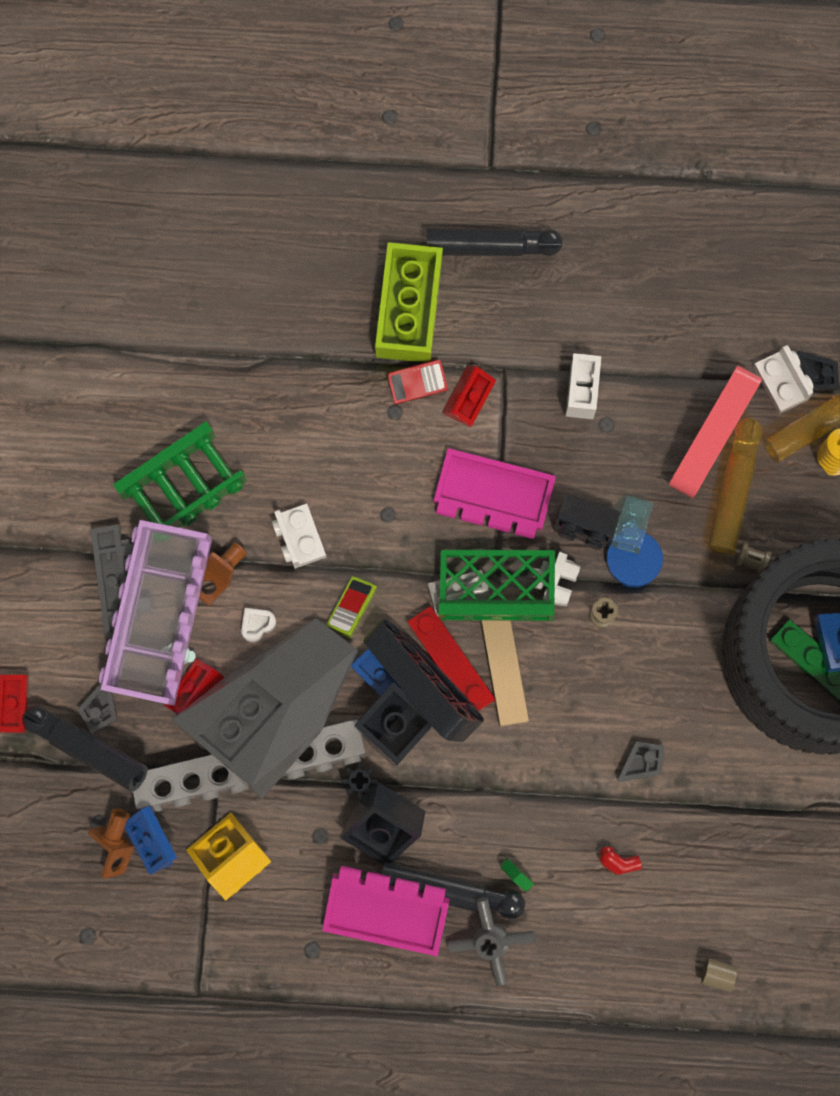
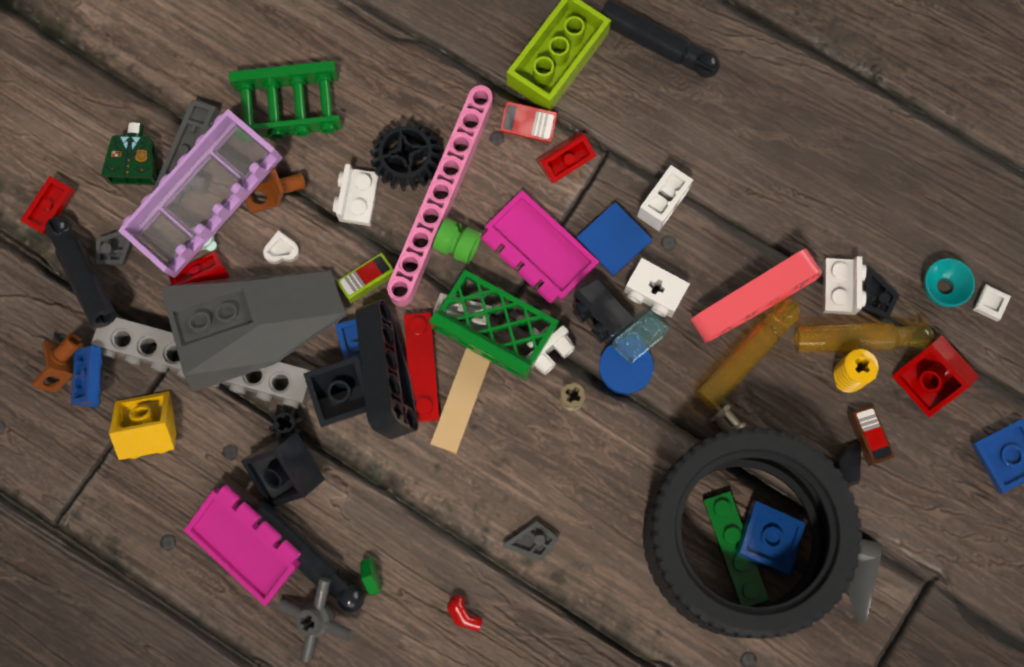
camera: 30 degrees right, 0 degrees up
(66, 616) = (131, 158): none -> dark green torso
(332, 465) = (382, 161): none -> black gear
(377, 479) = (441, 182): none -> bright pink beam
(418, 527) = (458, 241): none -> bright green wheel
(557, 448) = (614, 239): none -> blue tile
(635, 467) = (648, 276): none -> white brick

